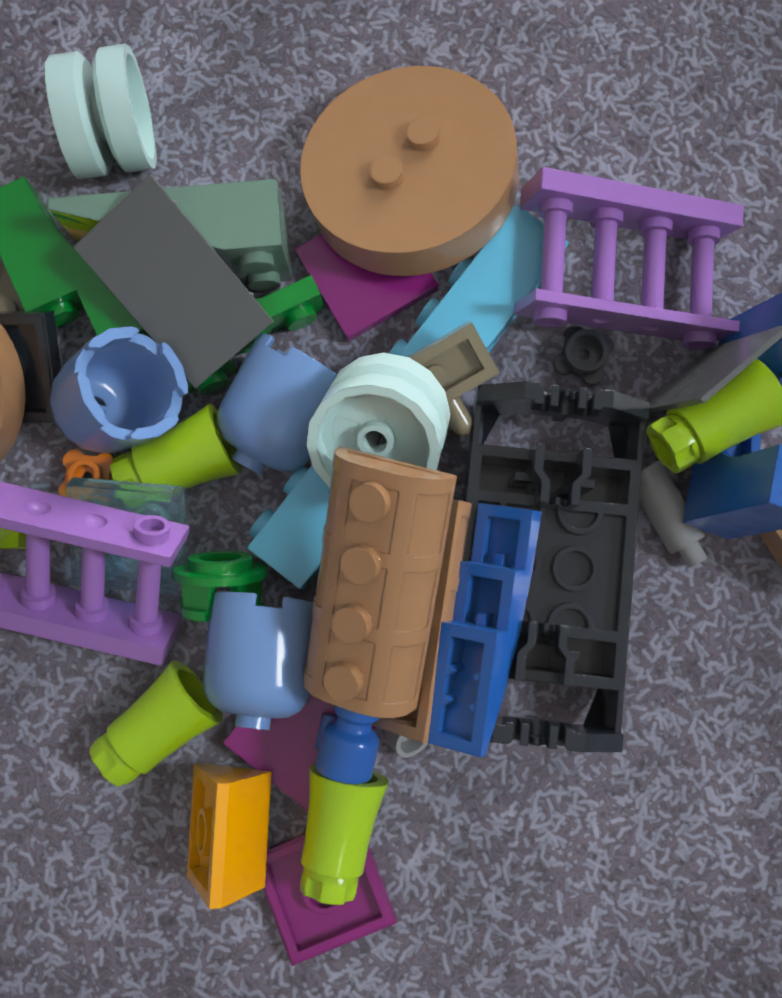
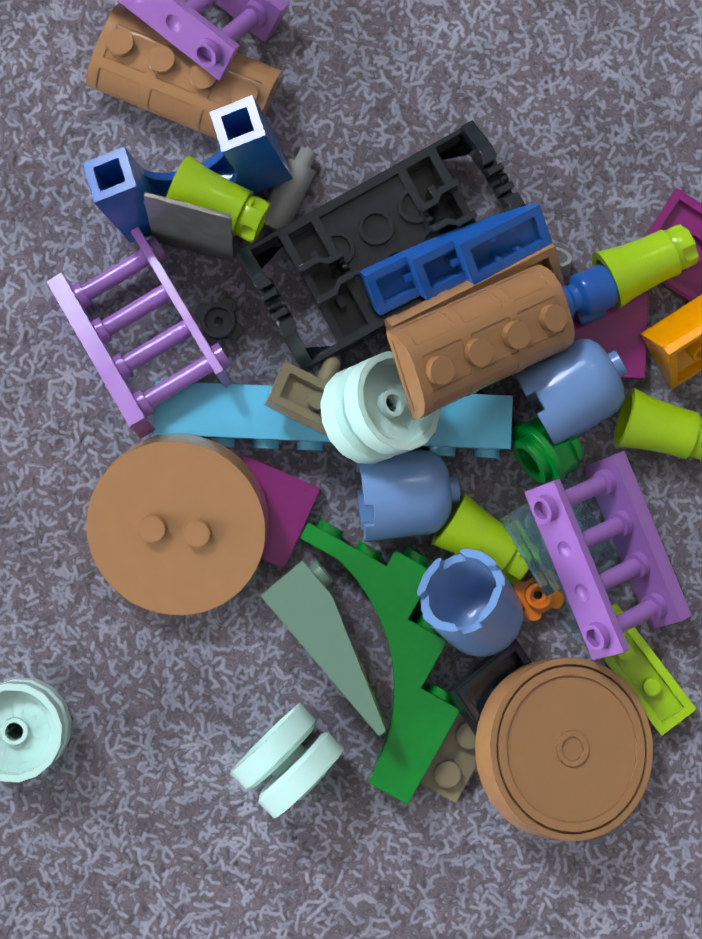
camera: 125 degrees left, 5 degrees up
(173, 281) = (374, 616): dark grey window -> none

